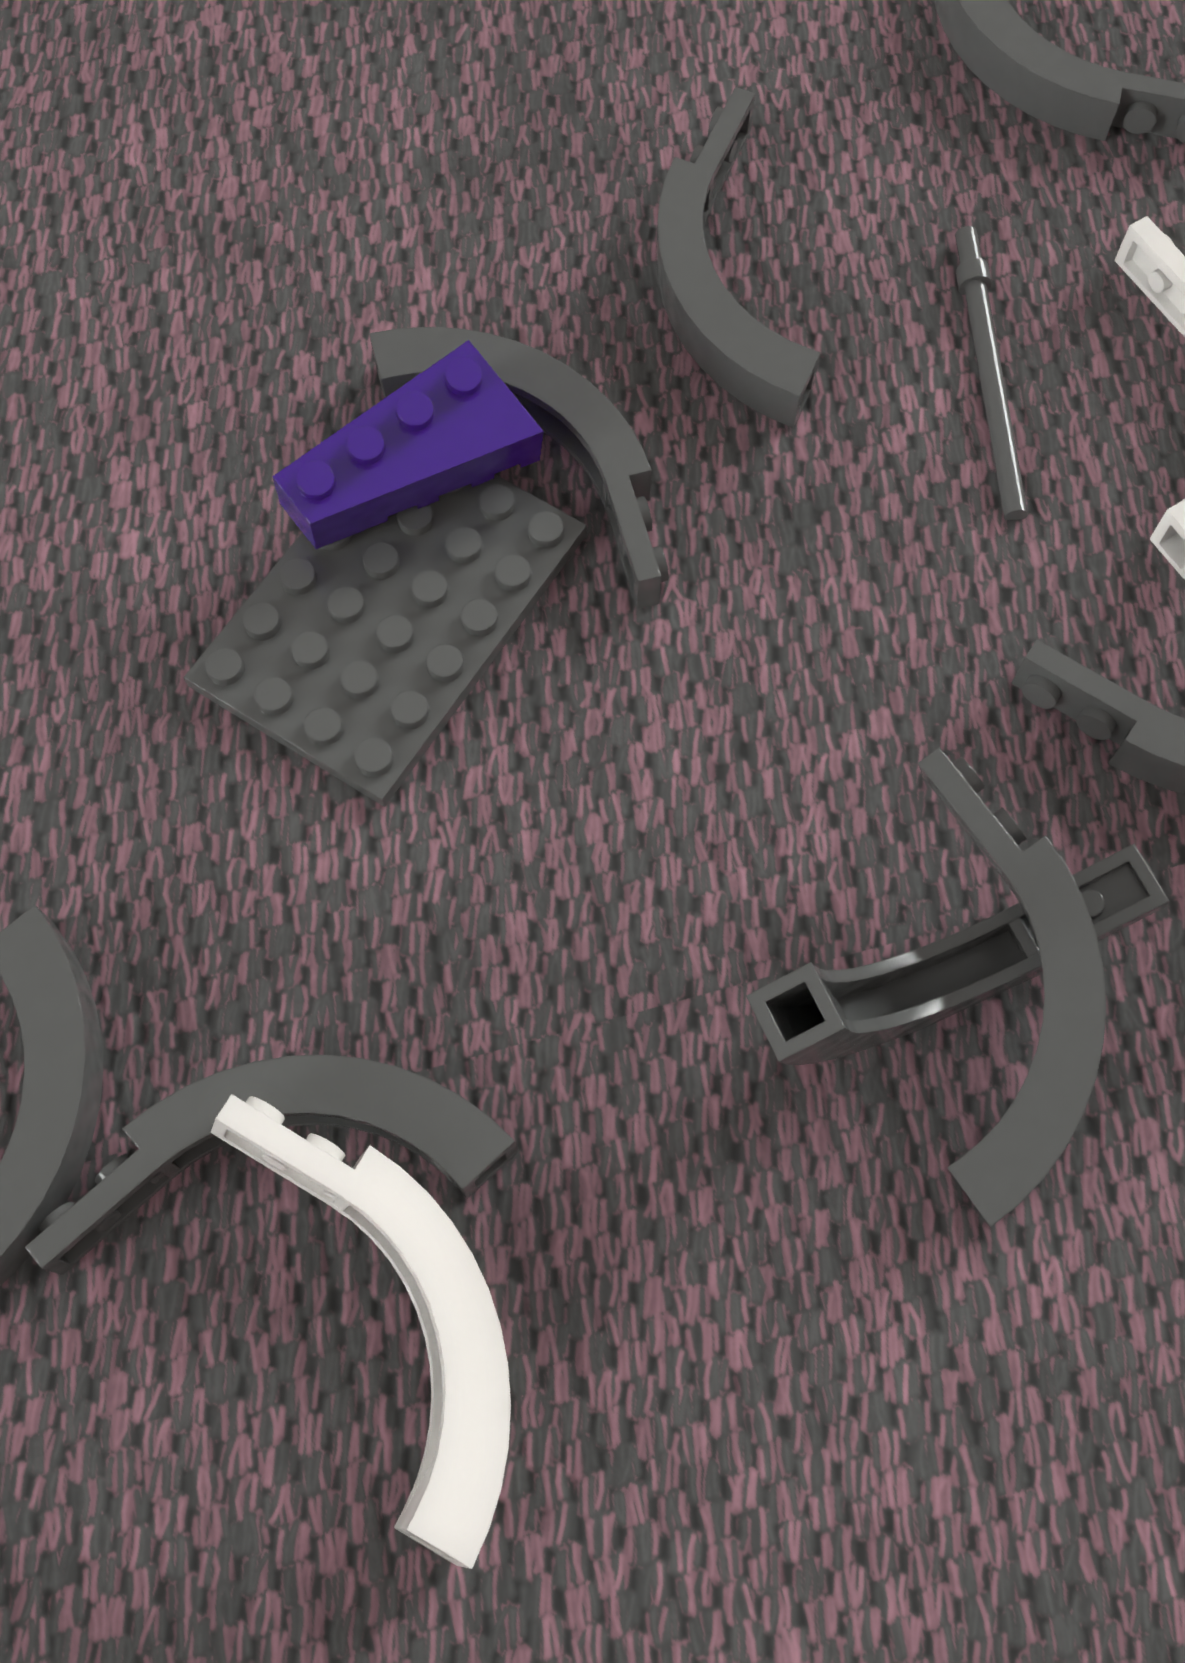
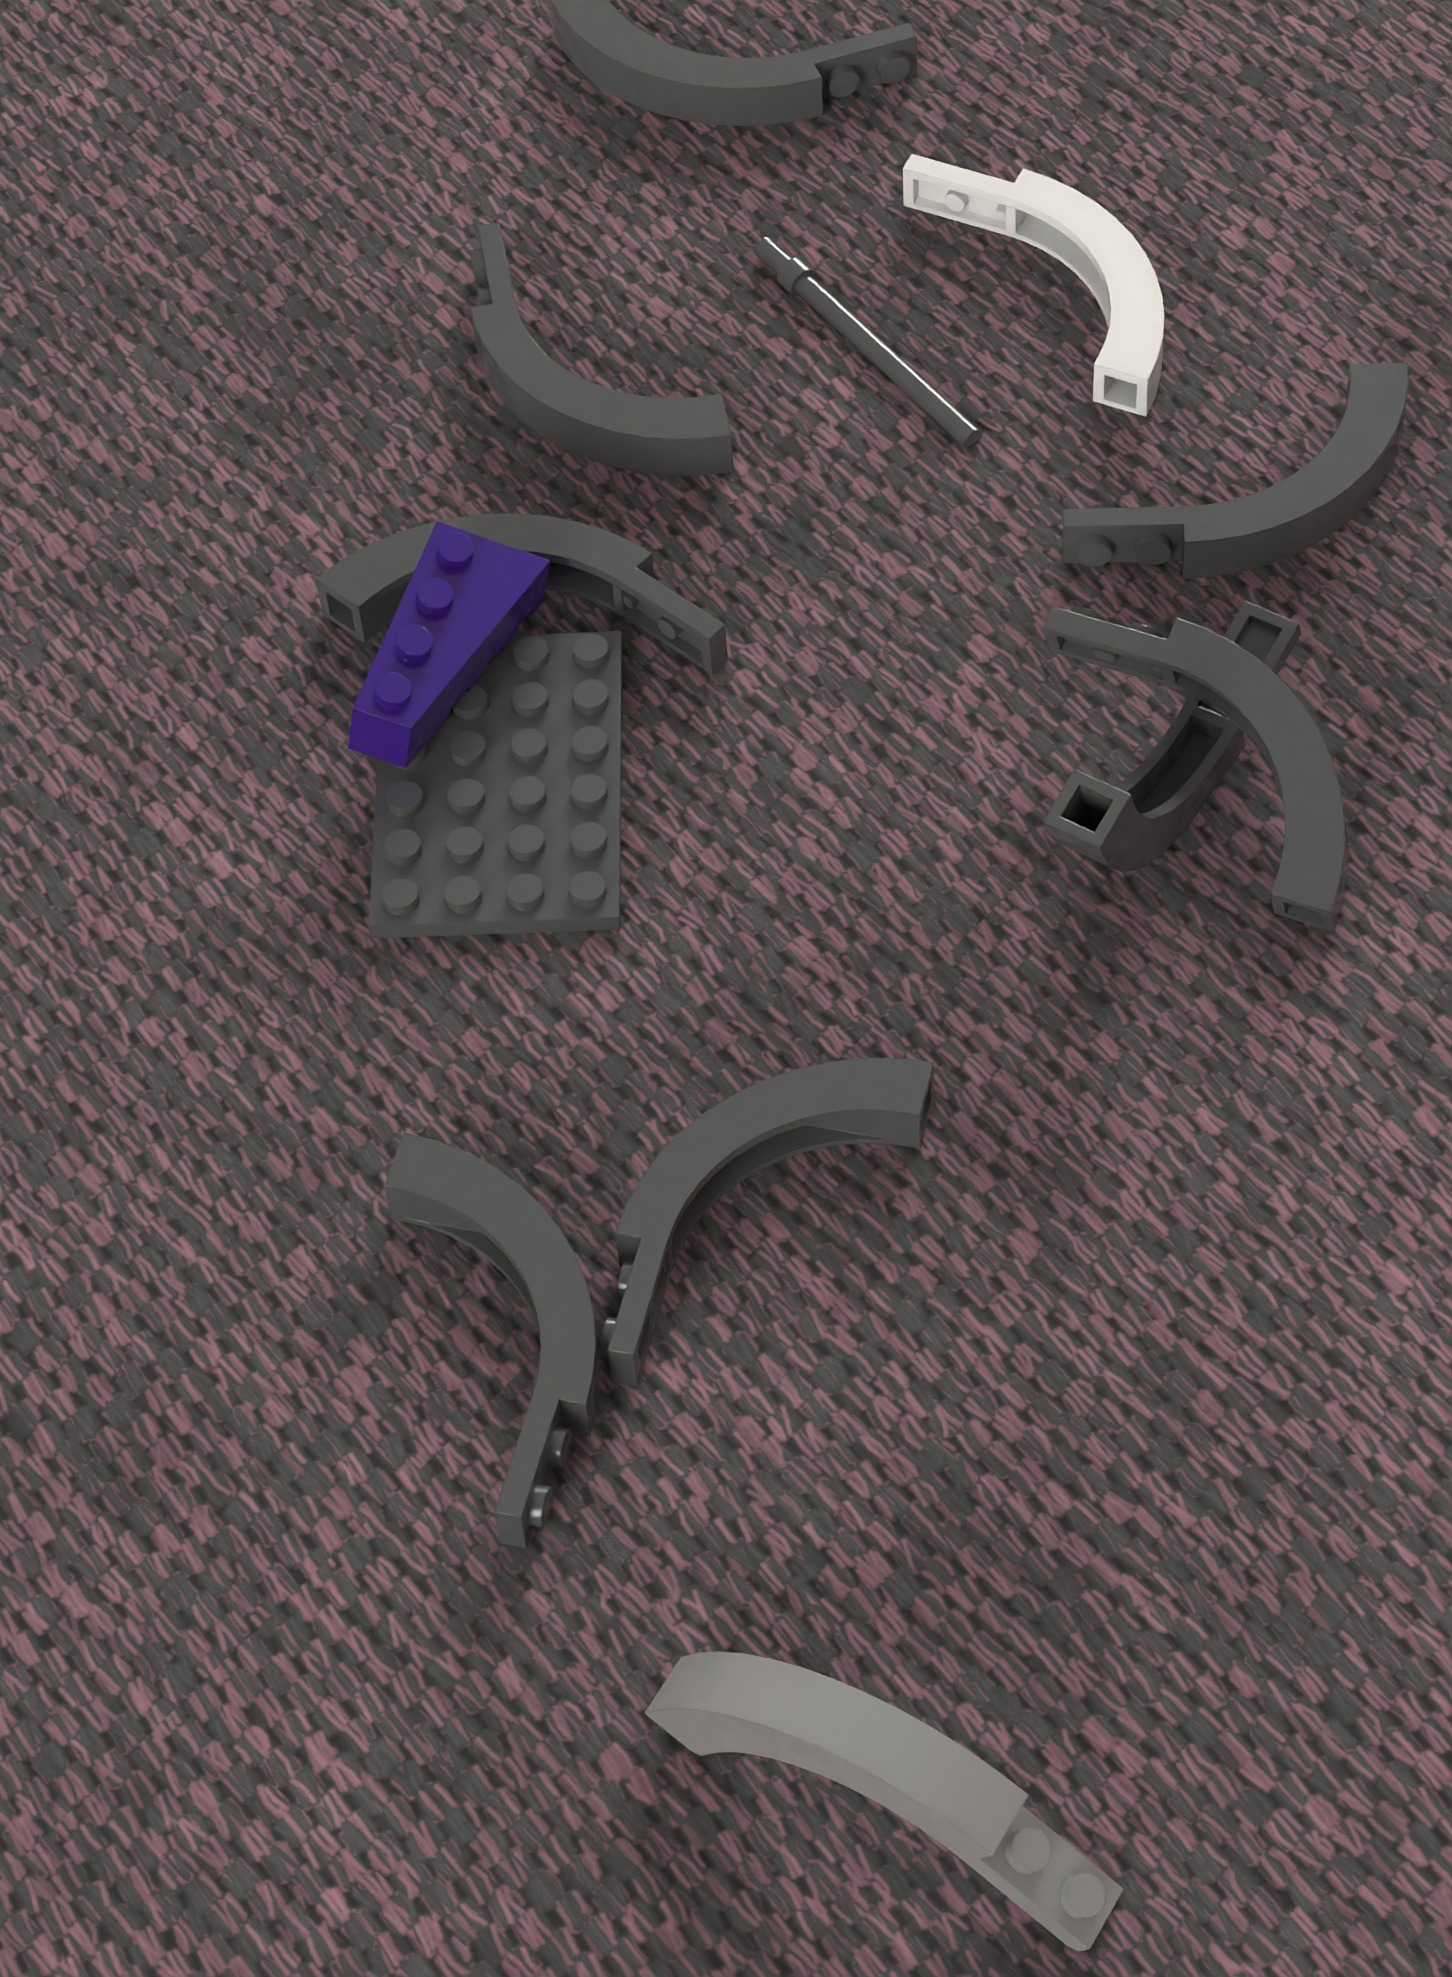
camera: 30 degrees left, 15 degrees down
(461, 1329) = (950, 1190): white arch -> none

